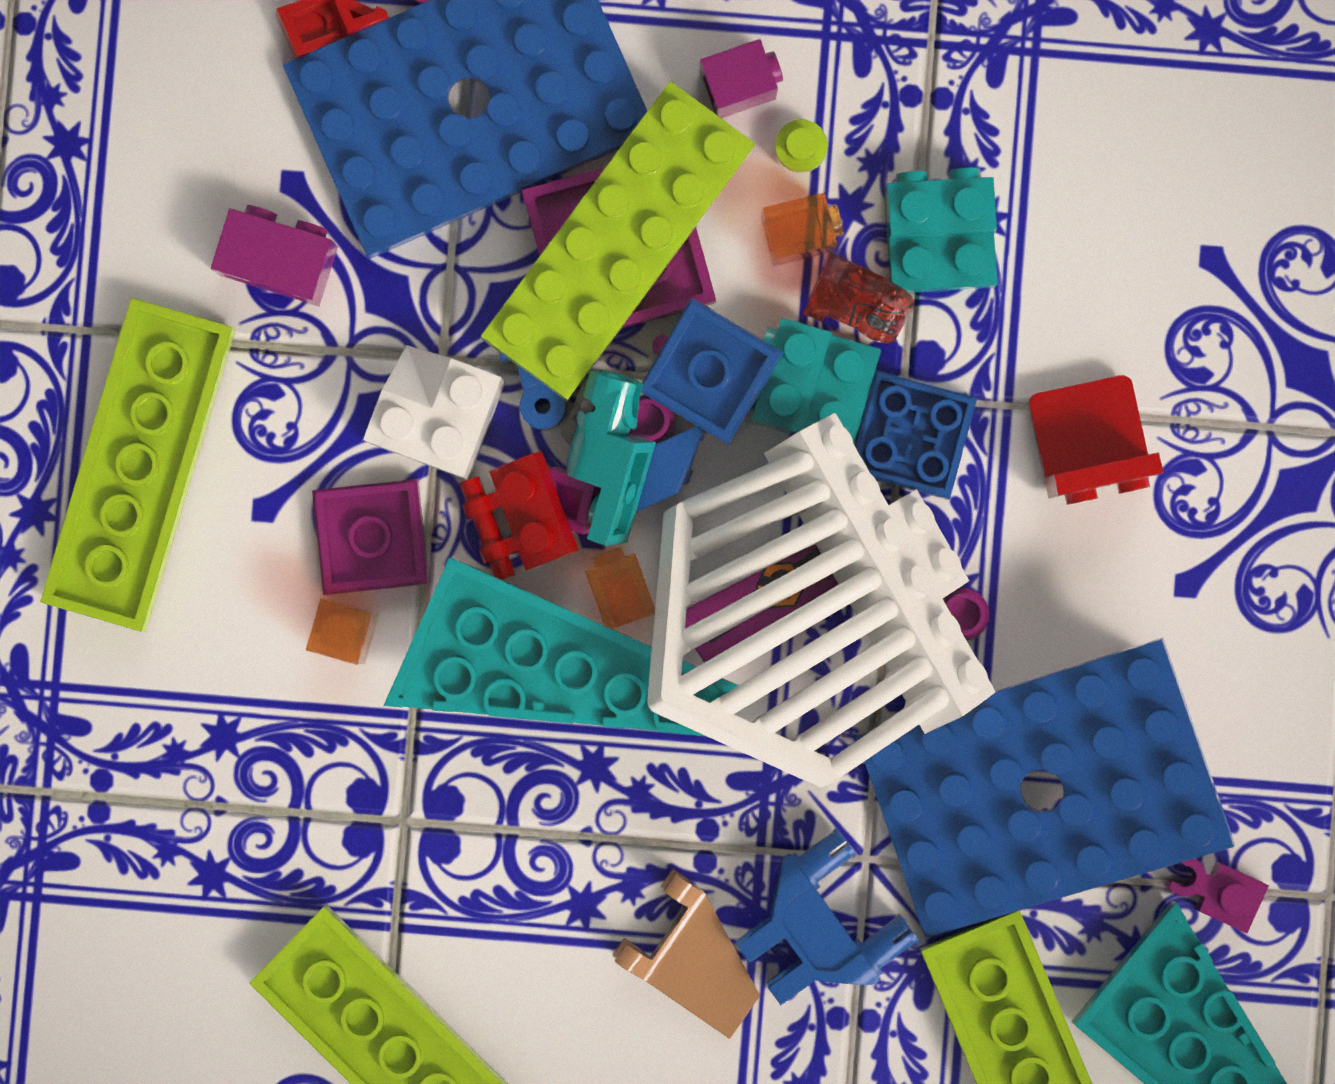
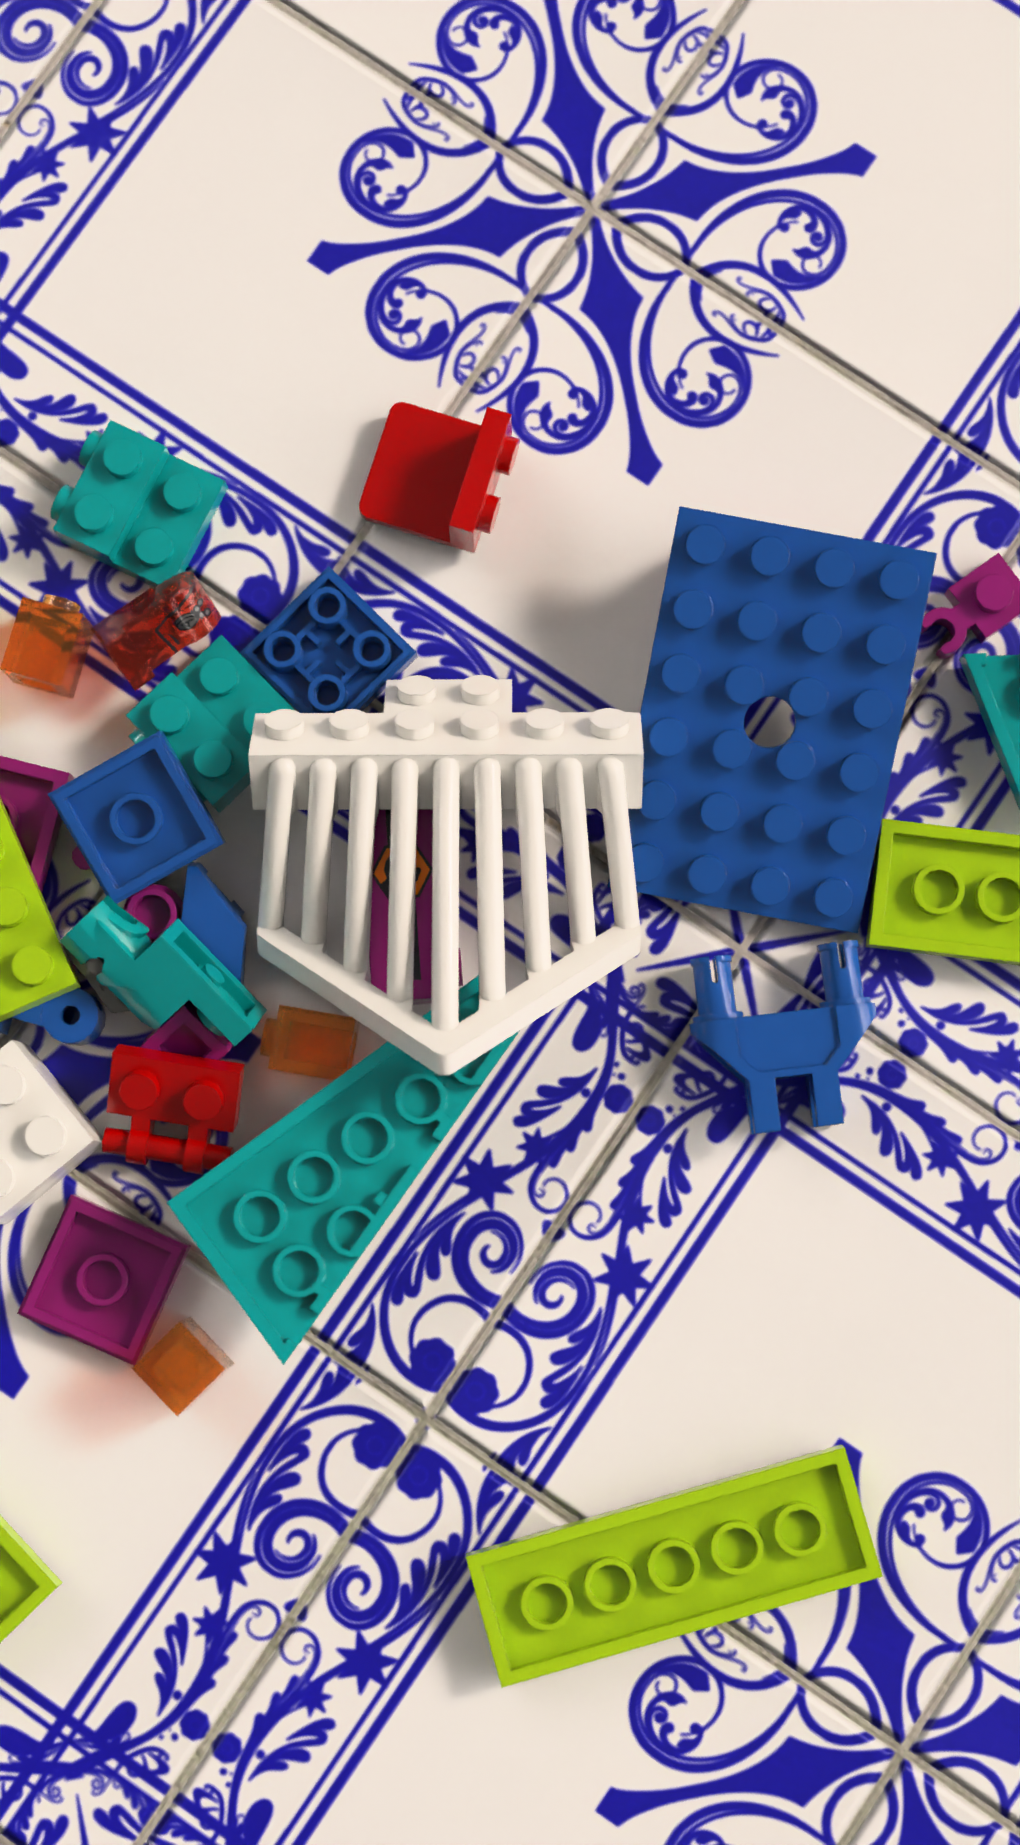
camera: 55 degrees left, 5 degrees down
(695, 962) = (750, 1189): medium nougat flag -> none
(969, 610) = (542, 692): magenta plate -> none

